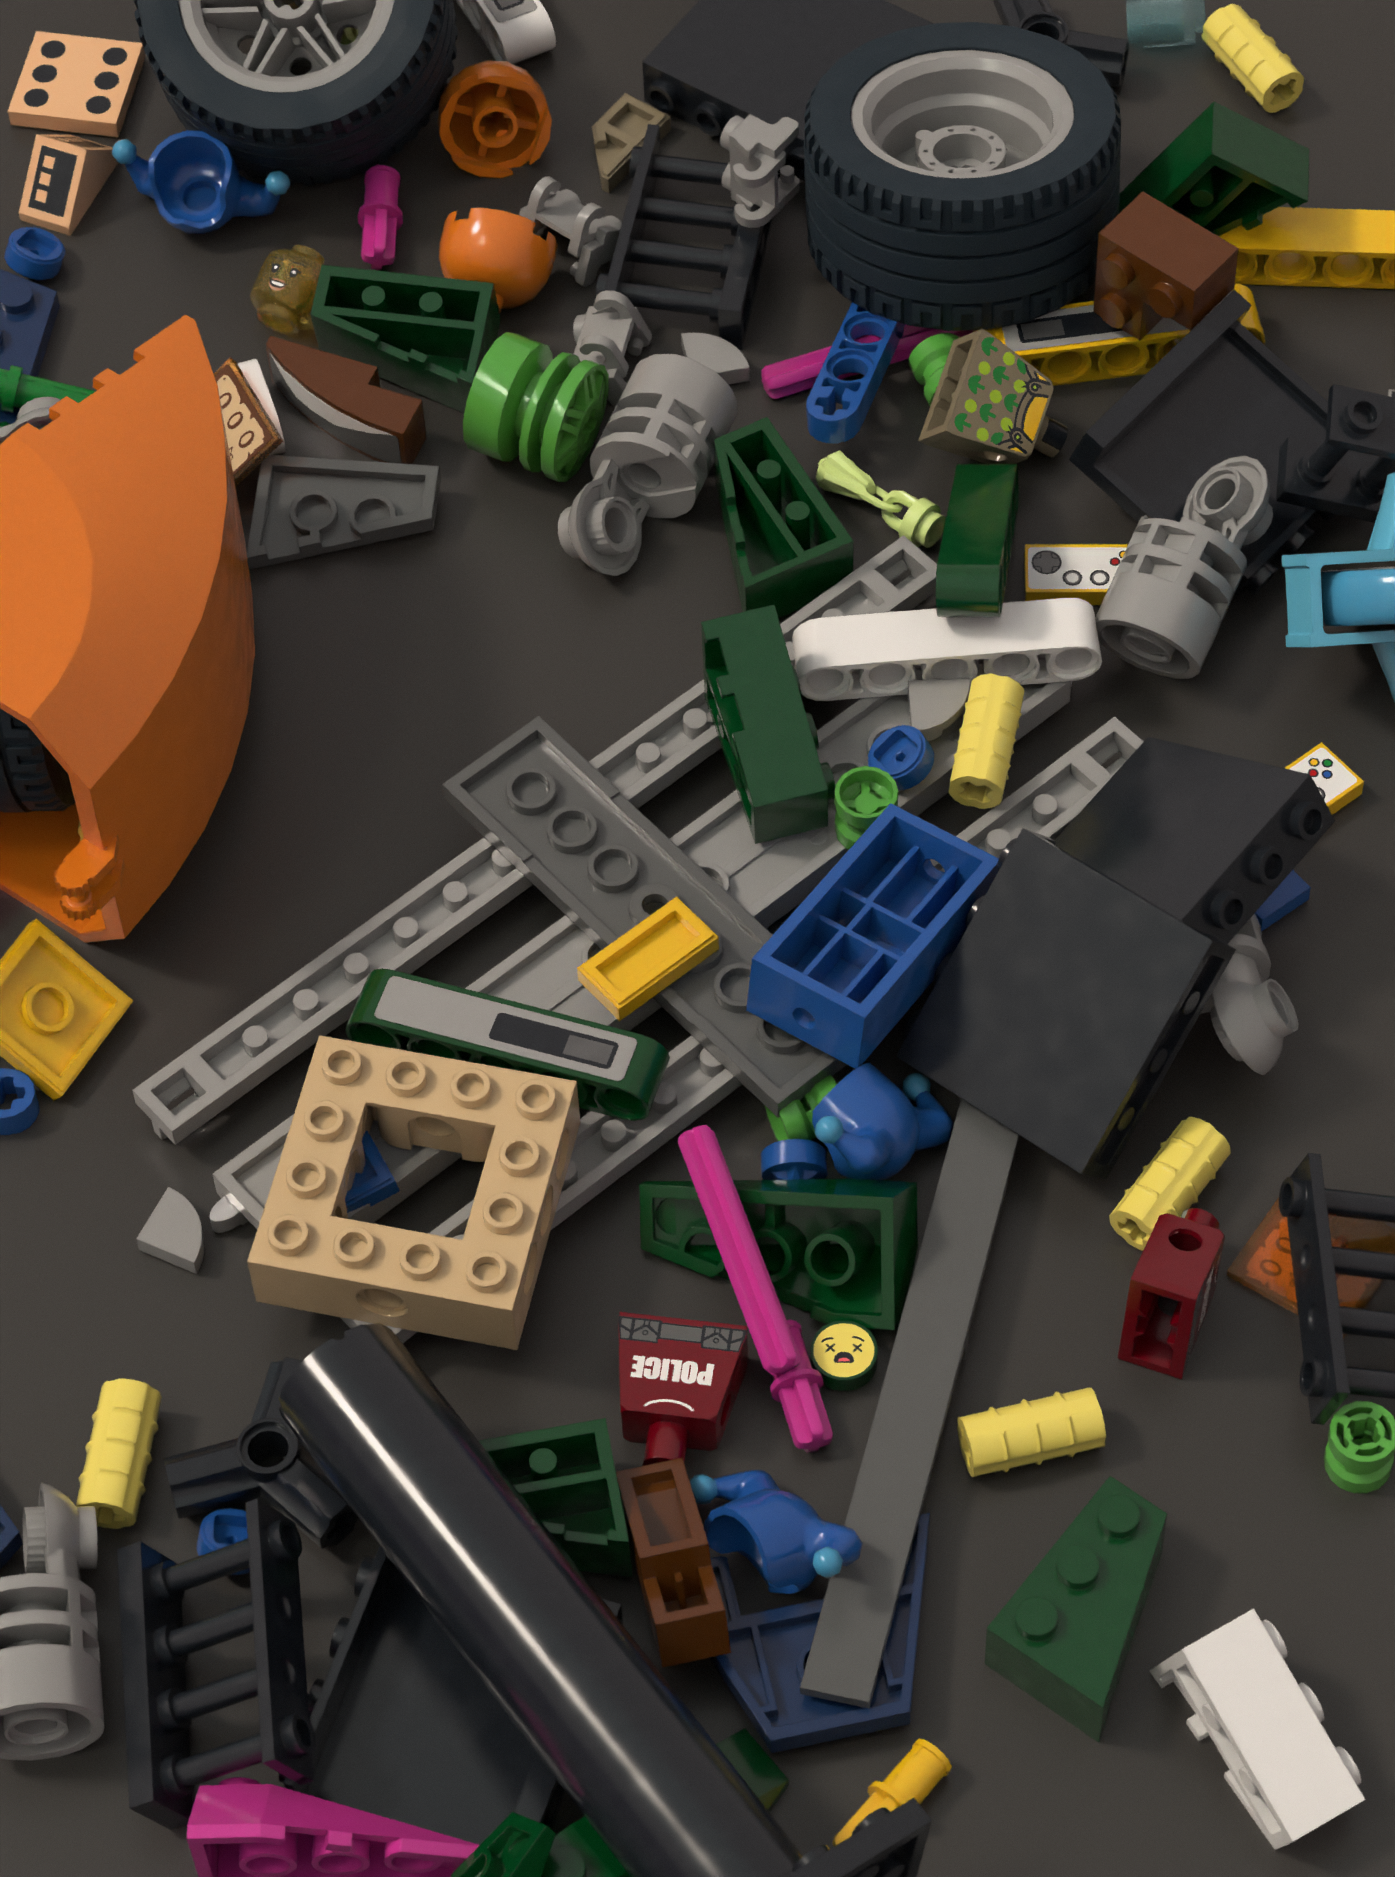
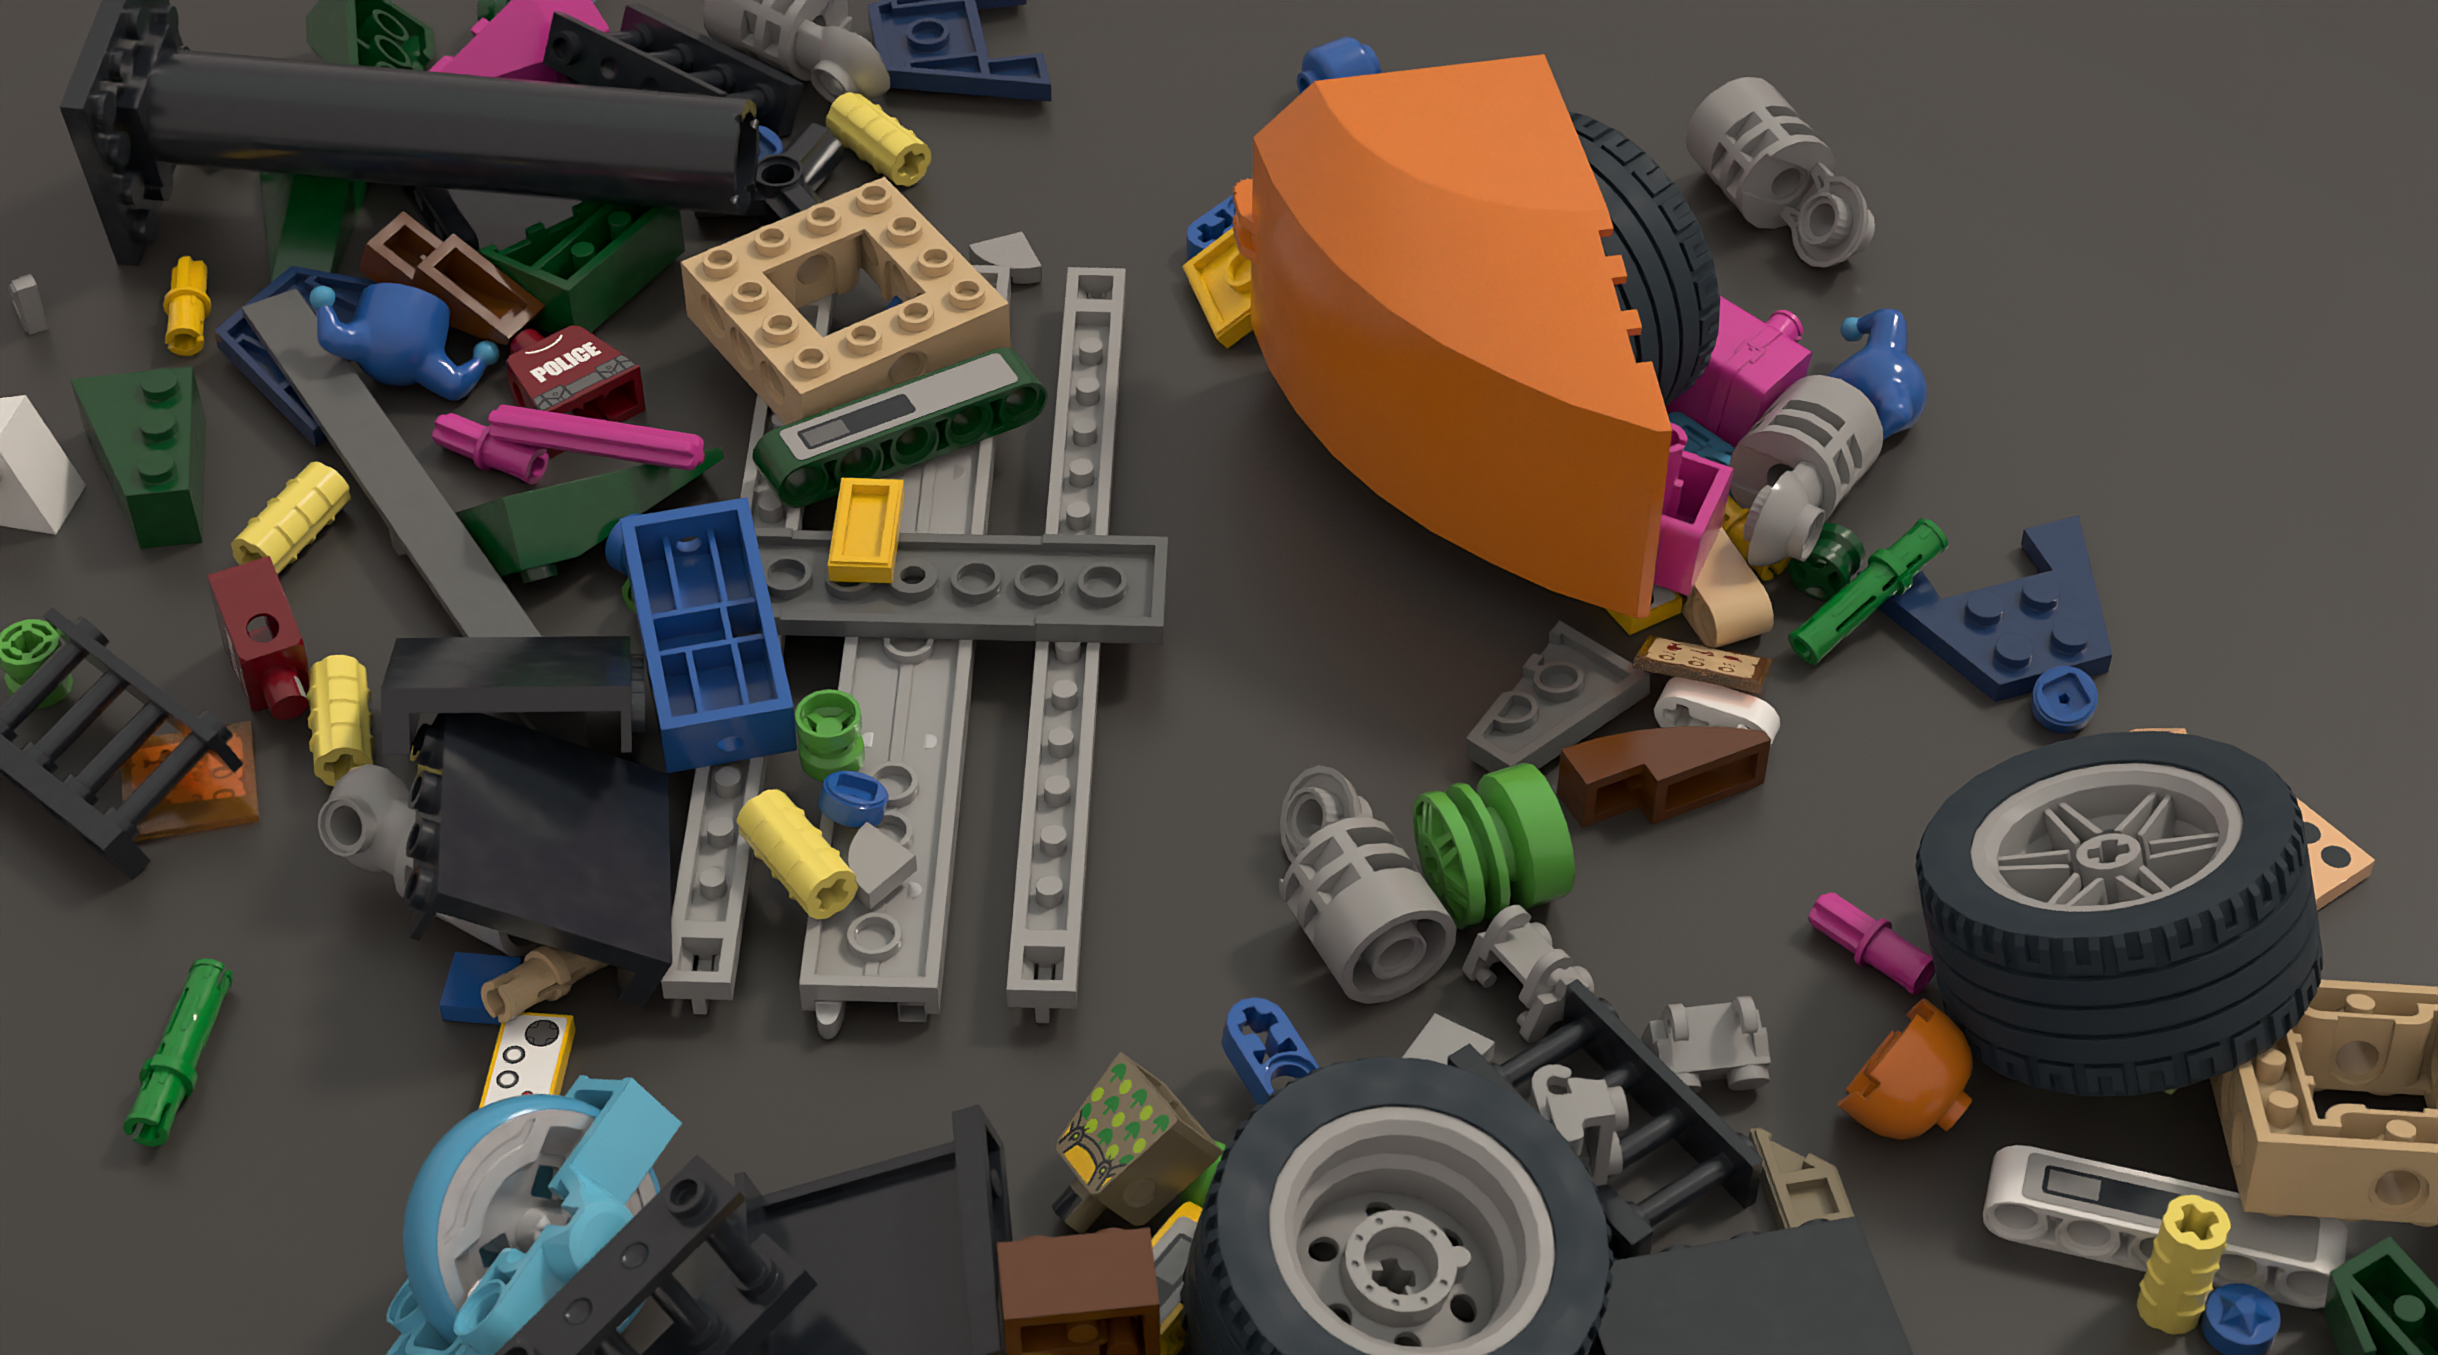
camera: 130 degrees right, 10 degrees down
(287, 289) = (1832, 815): clear yellow head -> none
(410, 326) = (1686, 845): dark green wedge -> none
(500, 251) = (1716, 948): orange cylinder -> none
(764, 725) = (973, 718): dark green wedge -> none
(776, 522) = (1192, 924): dark green wedge -> none
(844, 1355) = (477, 484): tile -> none
(875, 1127) = (585, 565): blue piece -> none
(886, 650) = (908, 899): white beam -> none
(923, 520) = (1186, 1036): yellowish green piece -> none
(977, 541) = (982, 986): dark green beam -> none
(1070, 570) = (907, 1118): tile -> none
(1185, 573) = (786, 1114): light grey cylinder -> none

